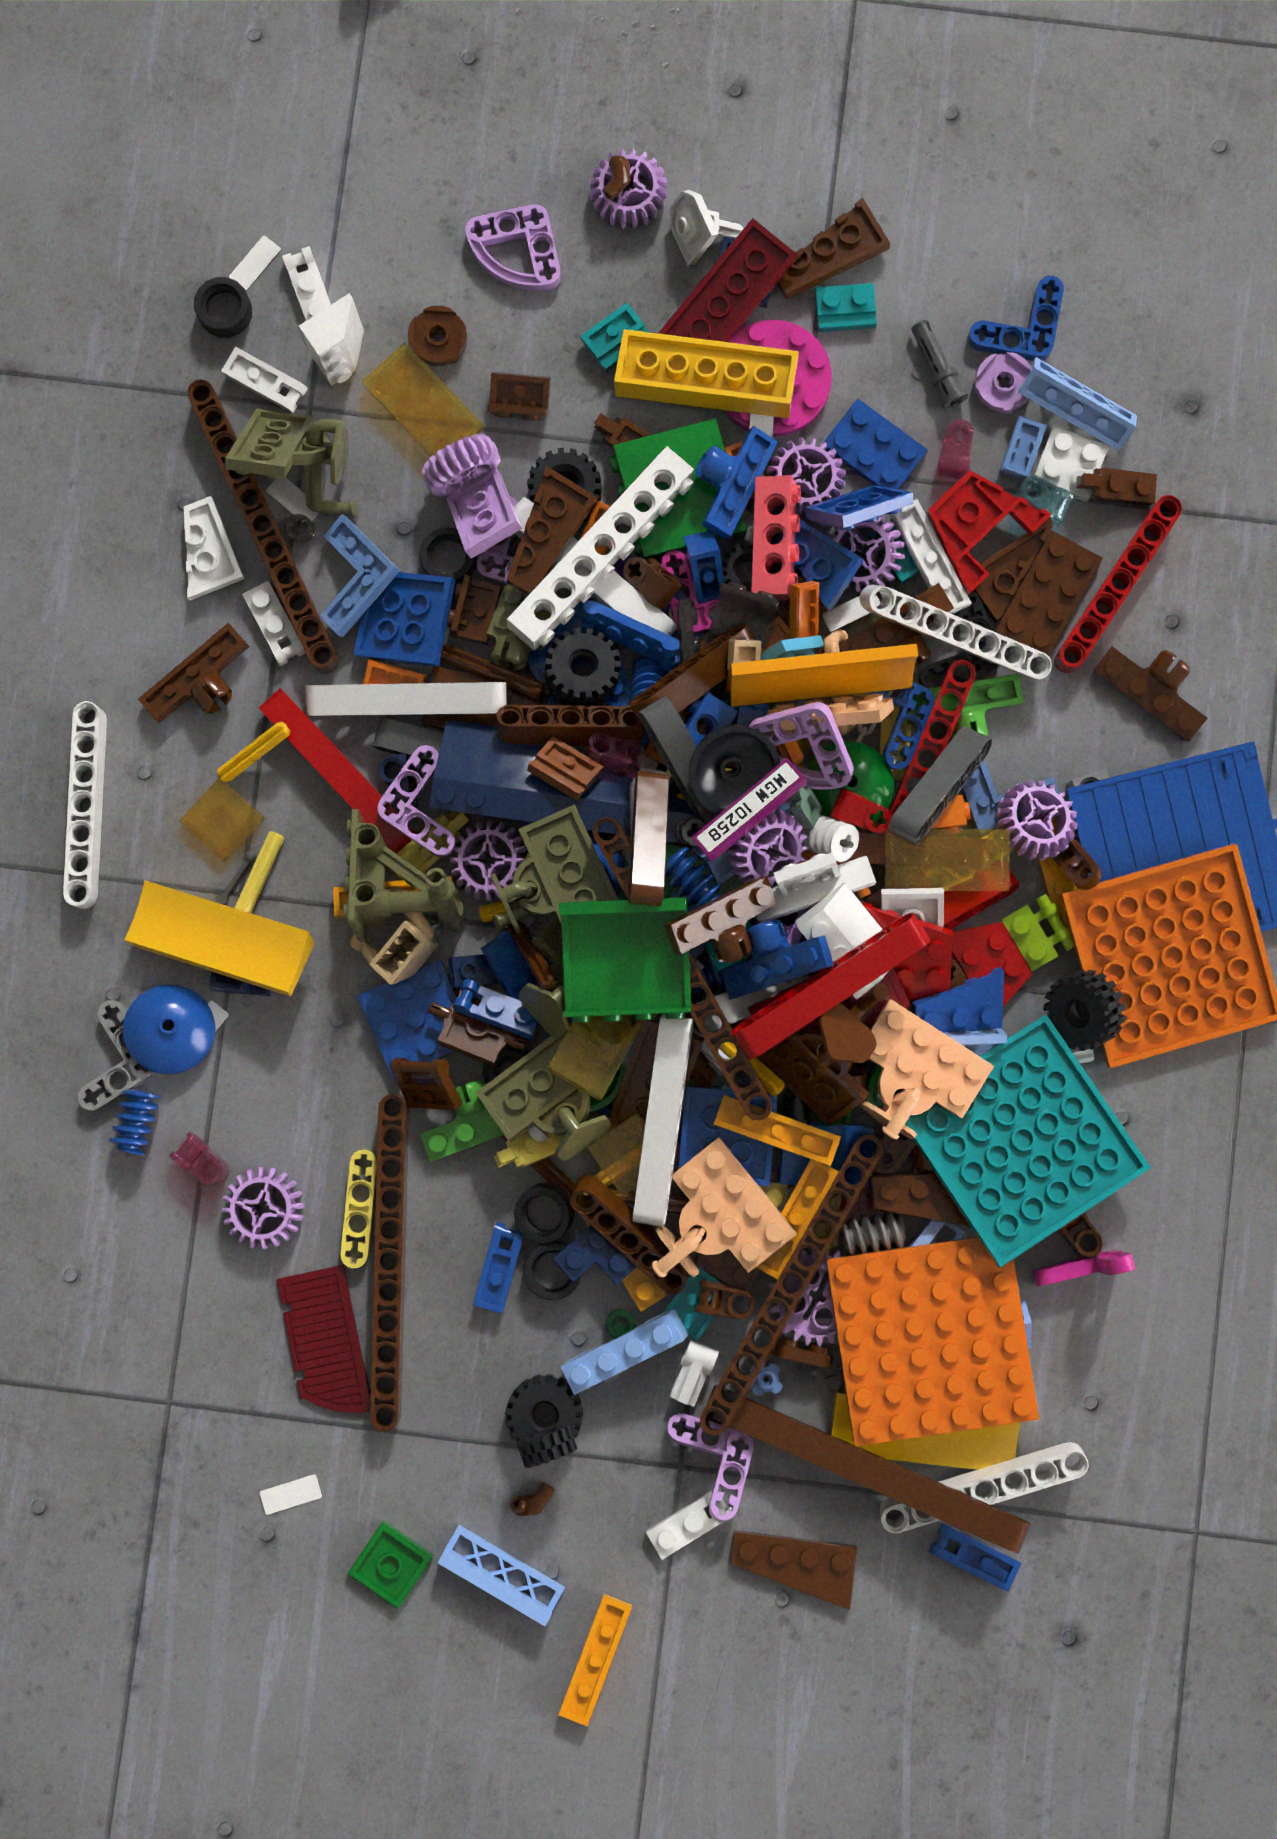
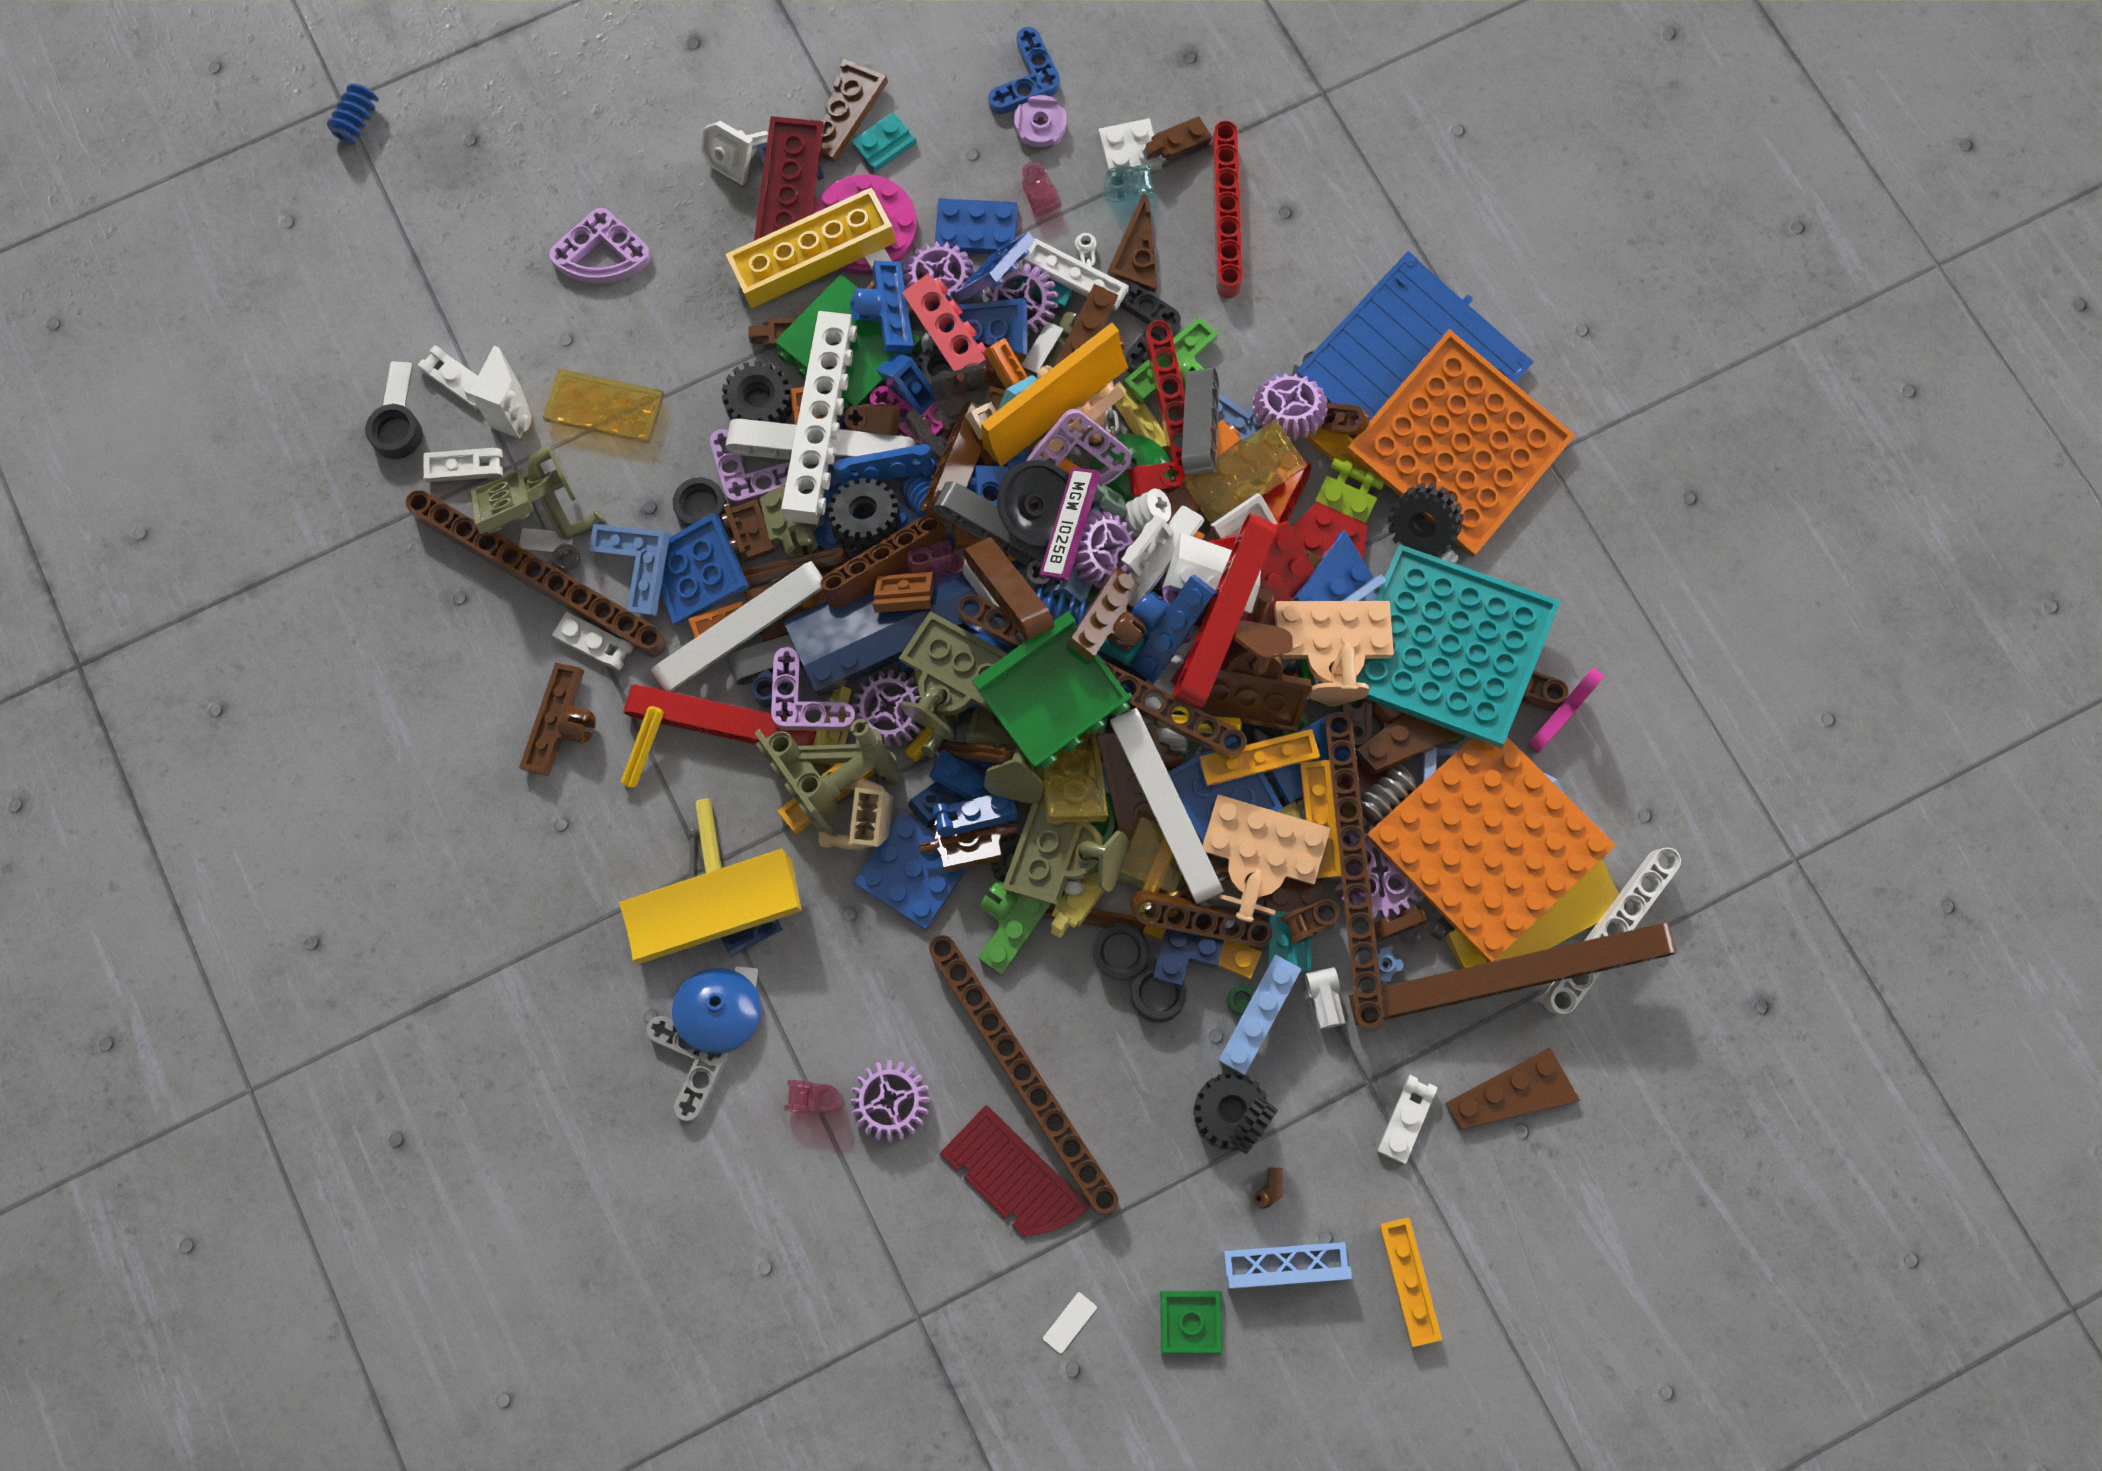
camera: 35 degrees left, 10 degrees down
(77, 793) = (520, 868): white beam -> none
(134, 1121) = (735, 1101): blue piece -> none
(210, 555) = (502, 618): white wing -> none
(222, 819) = (650, 818): clear yellow plate -> none
(353, 1208) = (972, 1048): light yellow beam -> none
(423, 1091) = (961, 917): reddish brown plate -> none
(448, 349) = (574, 335): reddish brown plate -> none
(460, 464) = (665, 428): lavender gear -> none
(483, 513) = (707, 450): lavender plate -> none
(498, 1269) = (1114, 1021): blue plate -> none
(519, 395) = (675, 351): reddish brown bracket -> none
(553, 521) = (767, 423): reddish brown wing -> none
(606, 336) = (716, 270): teal plate -> none
(621, 176) = (647, 144): reddish brown arm -> none
(647, 200) = (675, 158): lavender gear -> none
(723, 1449) = (1392, 1041): lavender beam -> none
(905, 702) = (1132, 387): blue beam -> none
(943, 629) = (1122, 313): white beam -> none
(944, 375) = (992, 143): dark grey pin -> none
(969, 514) = (1081, 226): red wing -> none
(976, 1557) = (1646, 991): blue plate -> none
(1023, 448) = (1087, 158): medium blue plate -> none
(1049, 593) = (1181, 250): reddish brown plate -> none
(1078, 404) = (1106, 102): light blue fence -> none
(1154, 688) = (1307, 265): reddish brown plate -> none

